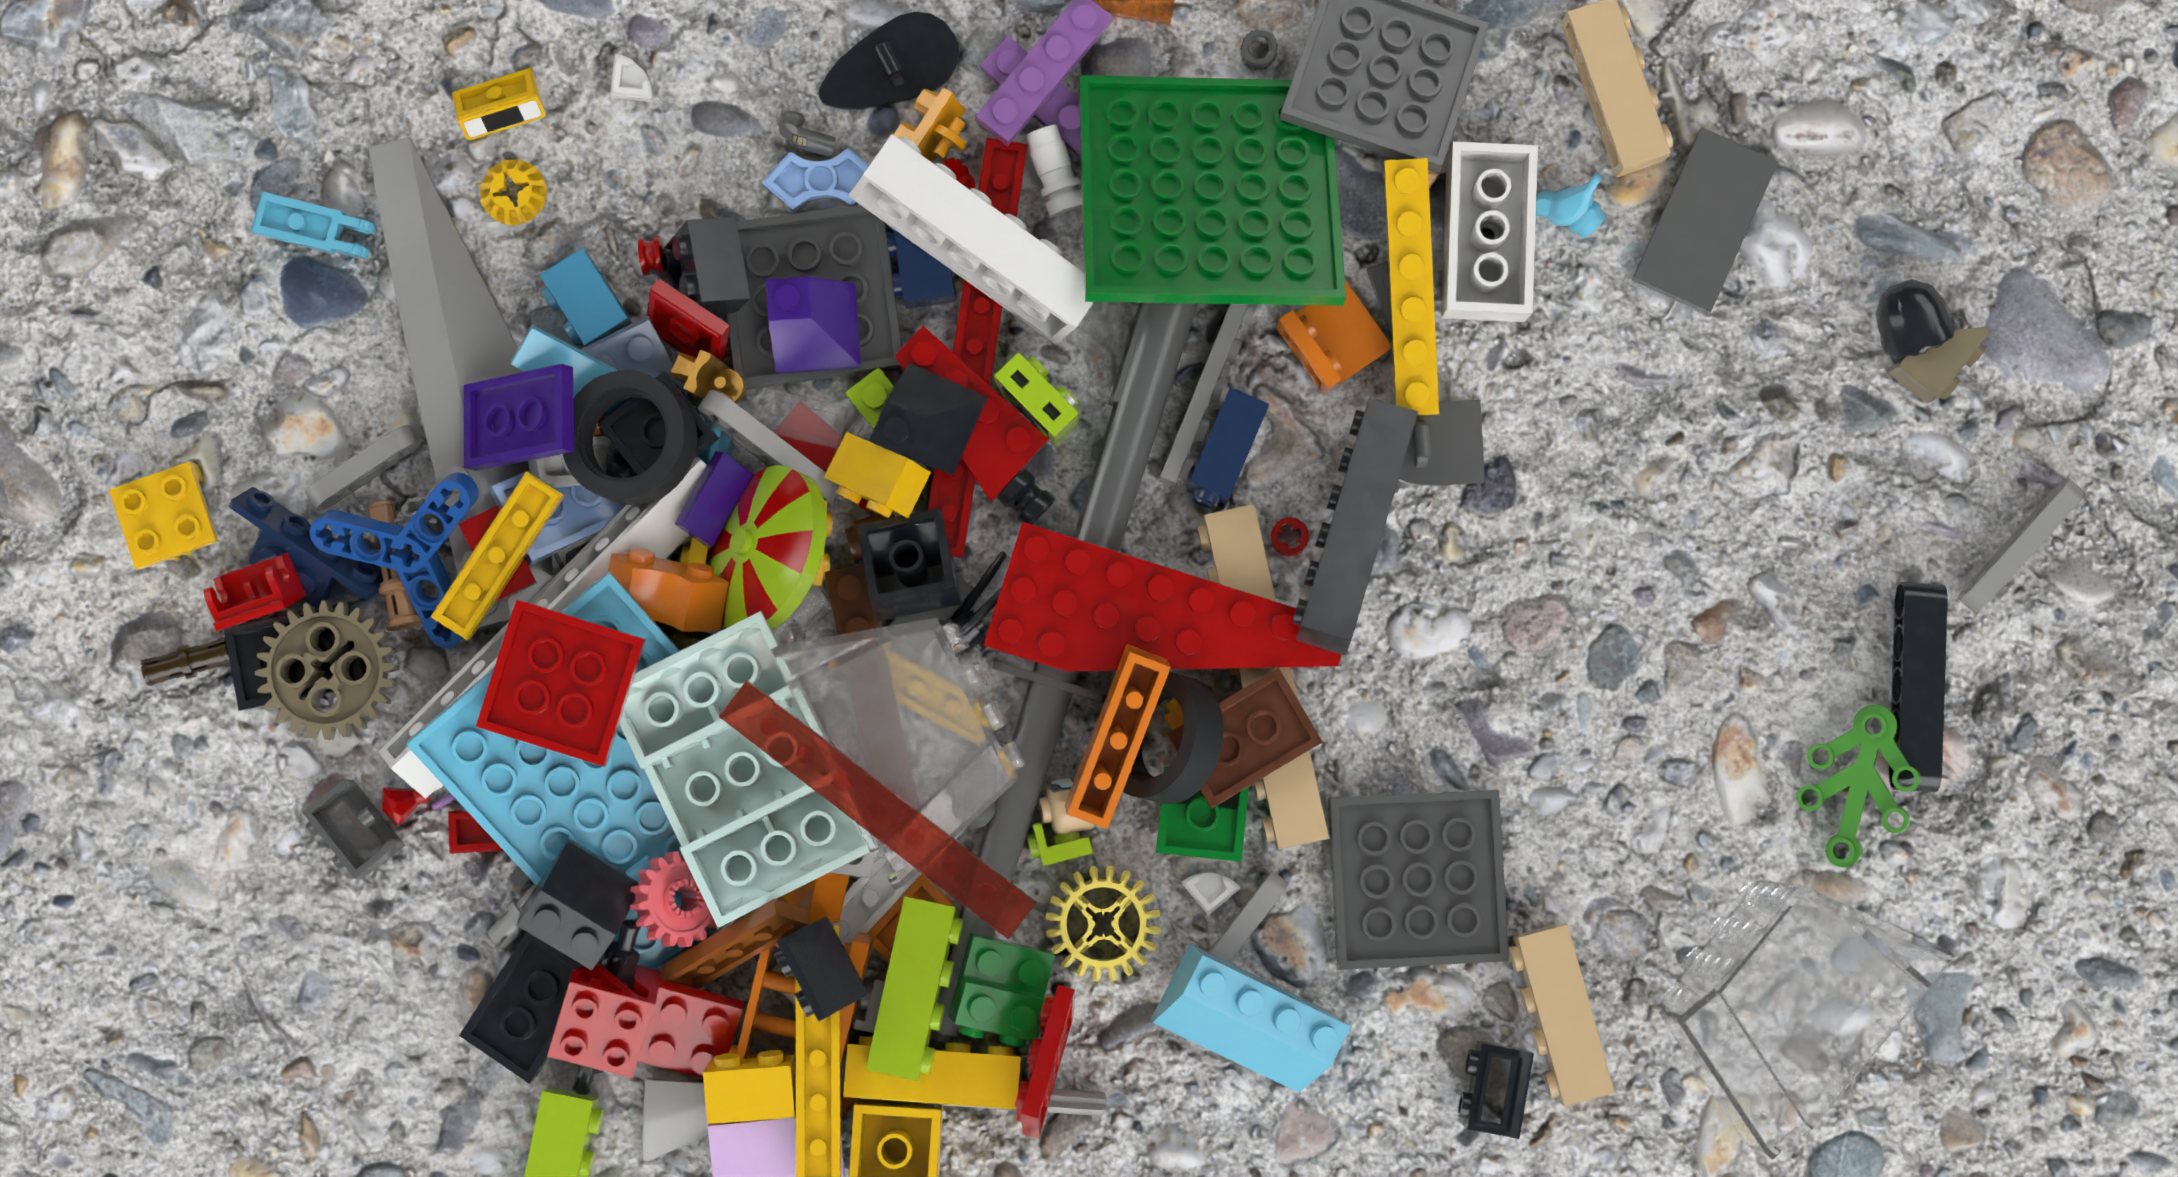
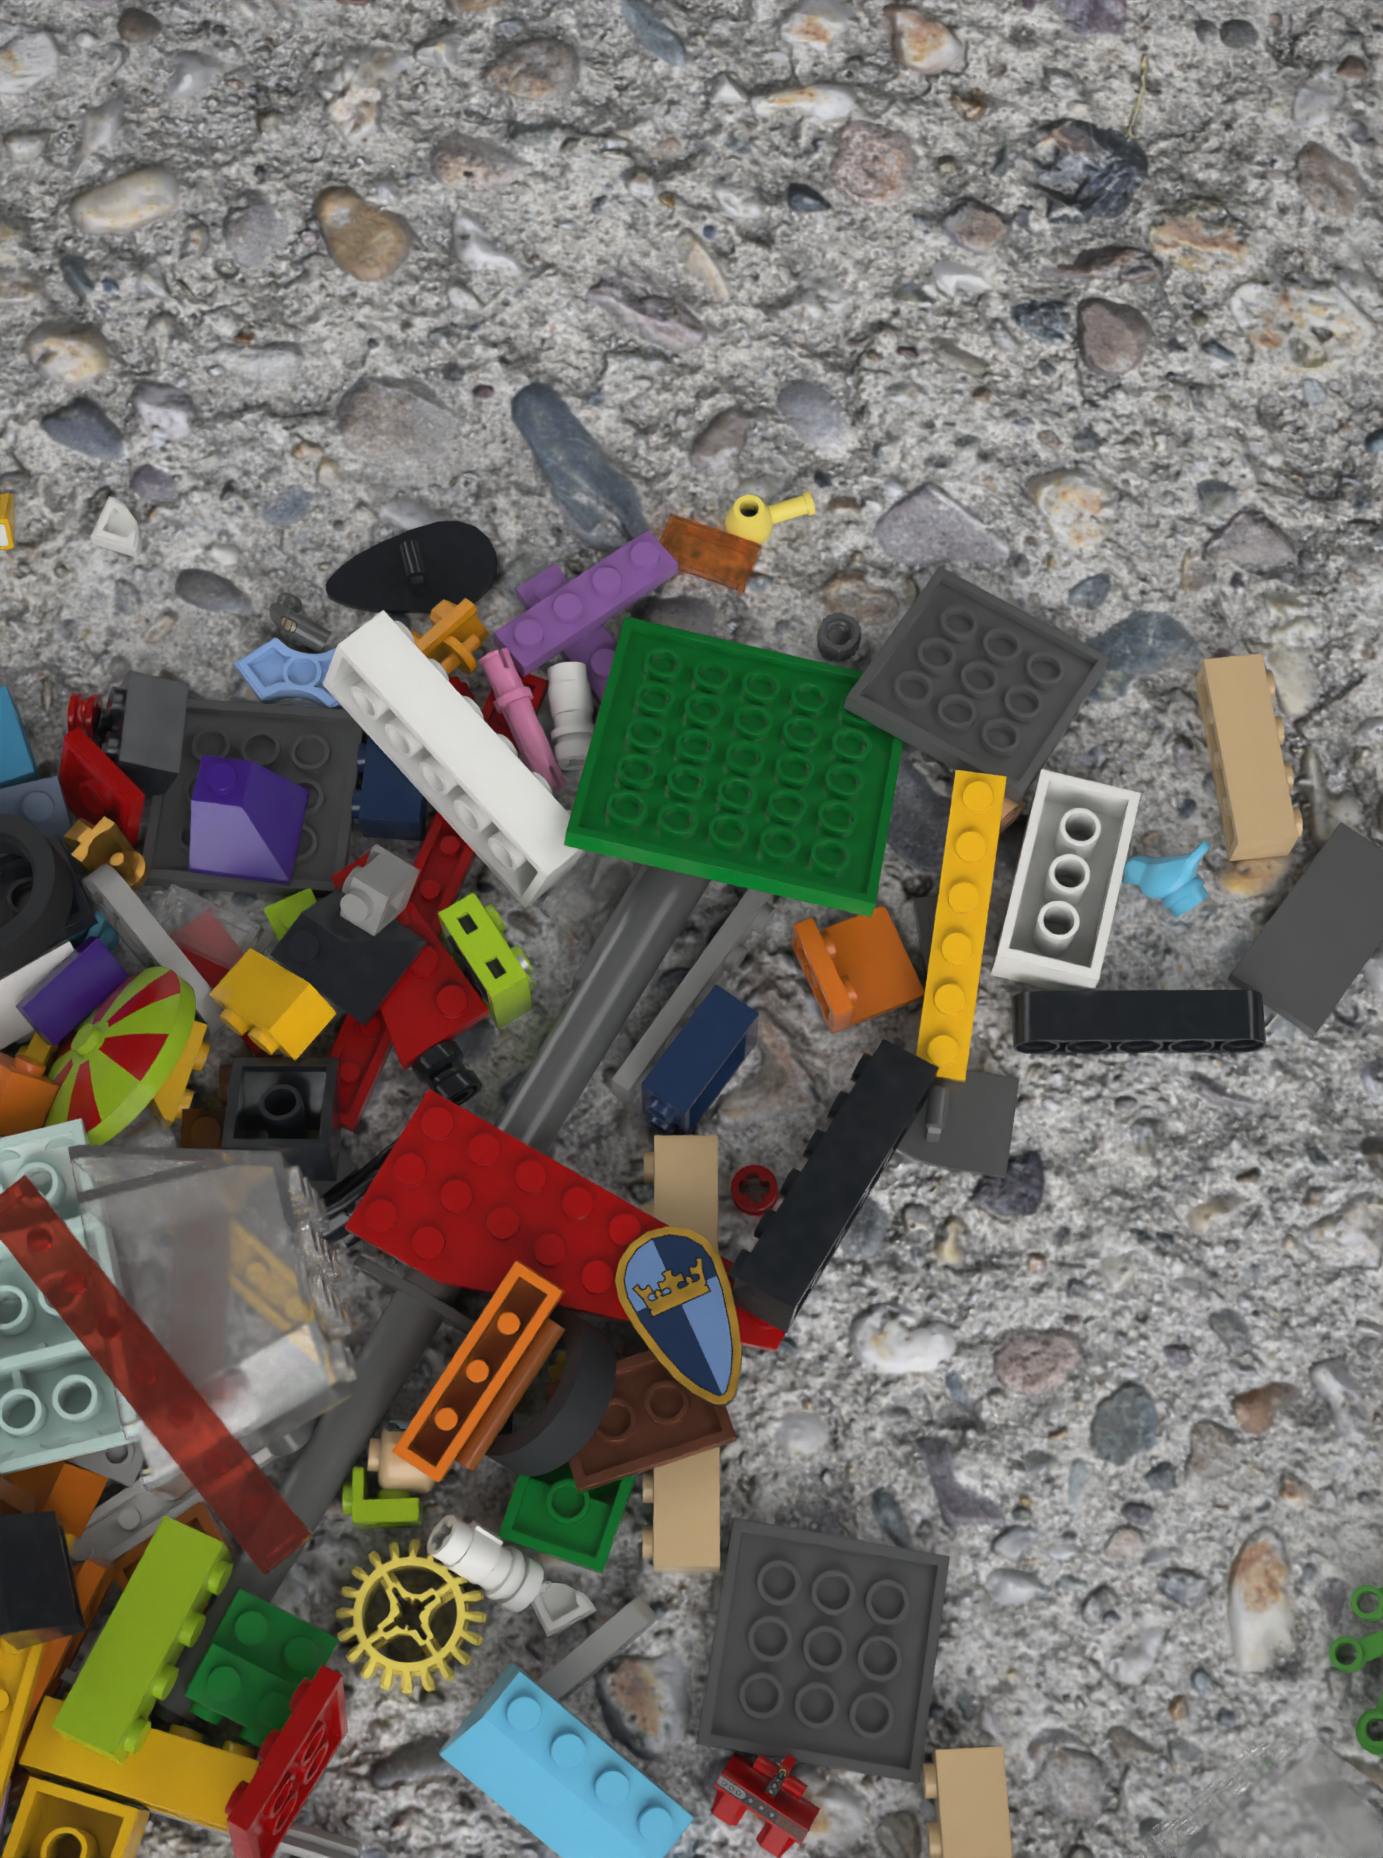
camera: 10 degrees right, 15 degrees down
(940, 366) = (378, 890): none -> light grey brick
(1016, 186) = (517, 709): none -> bright pink pin
(1146, 749) = (510, 1394): none -> dark orange bar
(1152, 873) = (478, 1557): none -> white axle
(1263, 655) = (684, 1310): none -> shield
(1401, 995) = (768, 1793): none -> red hips
(1567, 334) = (1138, 1021): none -> black beam

